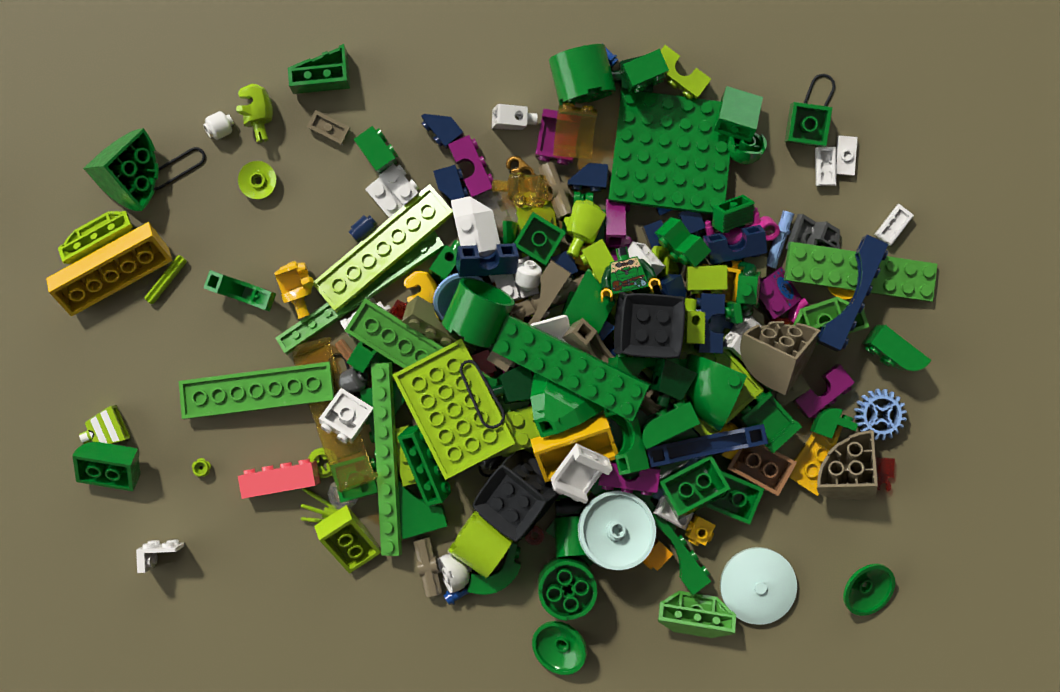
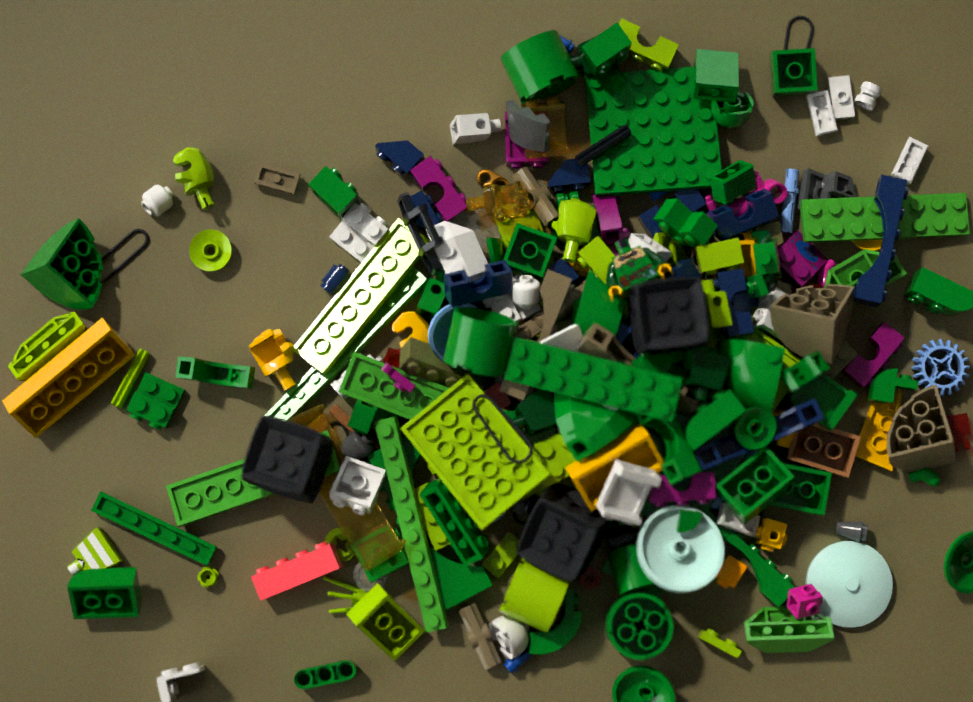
camera: 10 degrees left, 5 degrees down
(161, 415) = (154, 528): none -> green plate
(183, 304) = (155, 401): none -> green plate
(278, 576) = (315, 678): none -> green beam
(286, 383) = (287, 459): none -> black piece
(321, 73) = (258, 122): green wedge -> none
(401, 335) = (402, 382): none -> magenta plate
(439, 187) = (410, 217): none -> black bar
(461, 500) = (502, 555): none -> lime plate
(559, 129) = (526, 128): none -> dark grey slope
(624, 157) = (603, 145): none -> black axle
(629, 506) = (688, 520): none -> green tile
(629, 609) = (727, 646): none -> lime plate
(708, 445) = (761, 433): none -> green dish
(716, 594) = (804, 601): none -> dark pink brick
(760, 398) = (805, 371): none -> green brick
(771, 540) = (853, 530): none -> dark grey cone
(846, 505) = (926, 475): none -> green arm
(870, 159) = (868, 95): none -> white wheel

